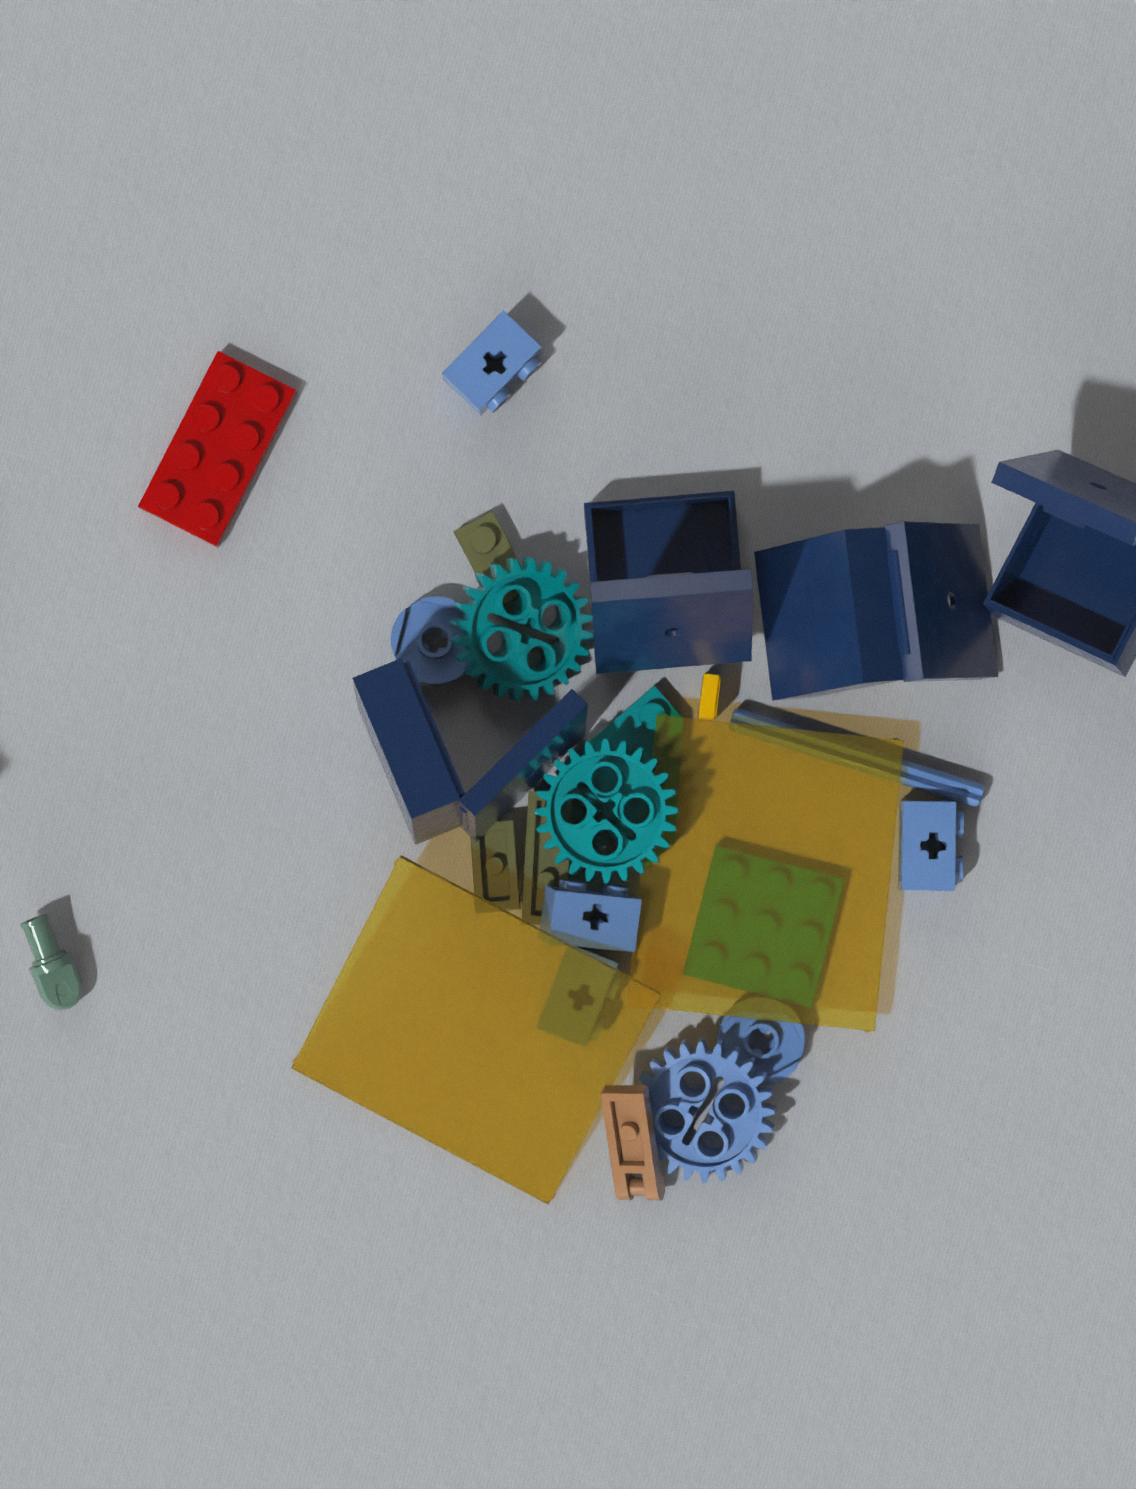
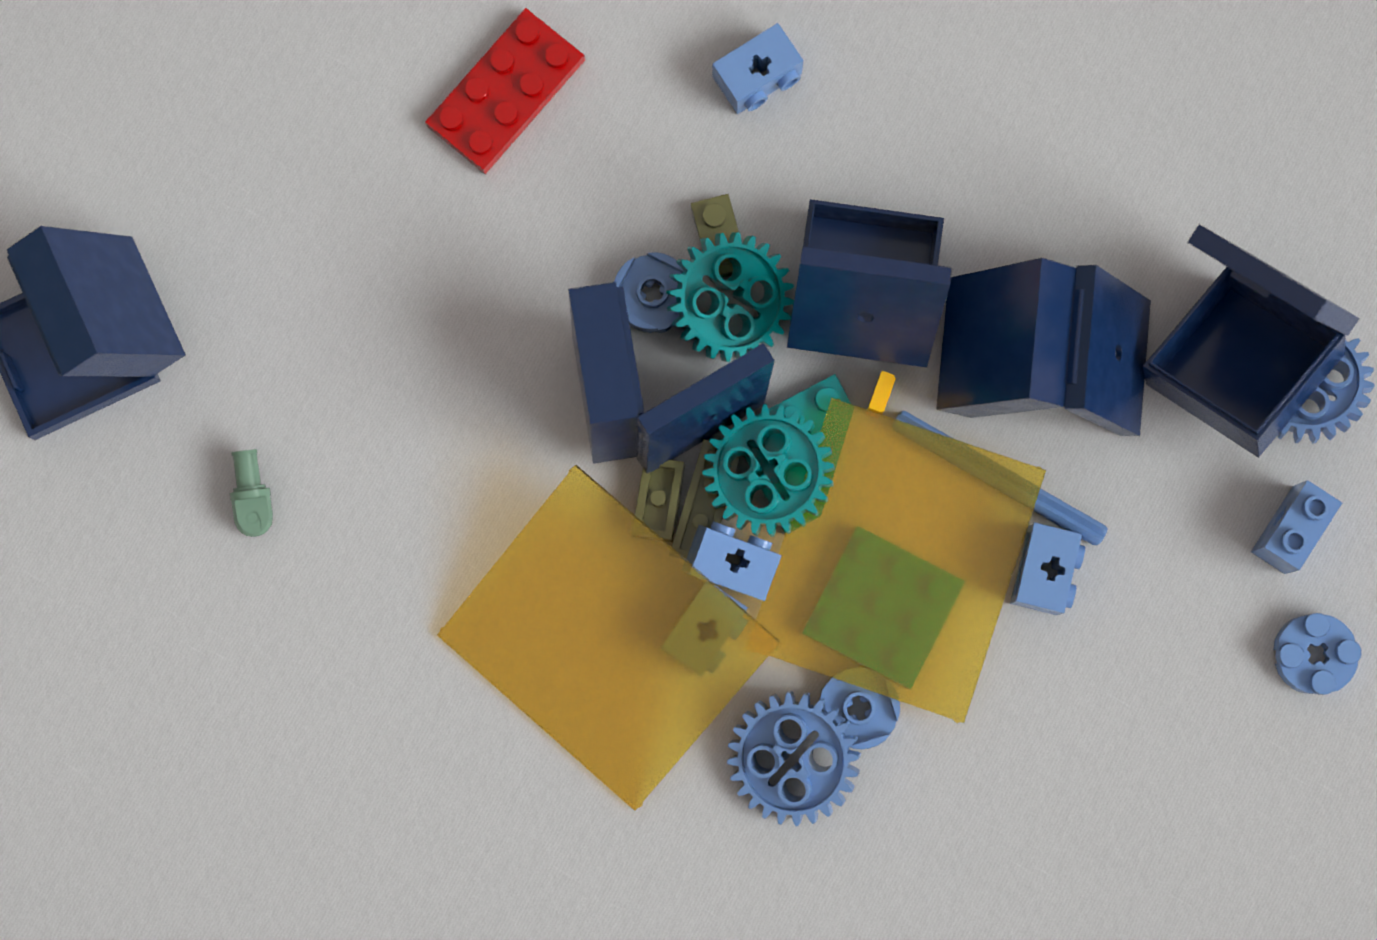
camera: 20 degrees right, 5 degrees down
(632, 1142) = (723, 771): medium nougat plate -> none

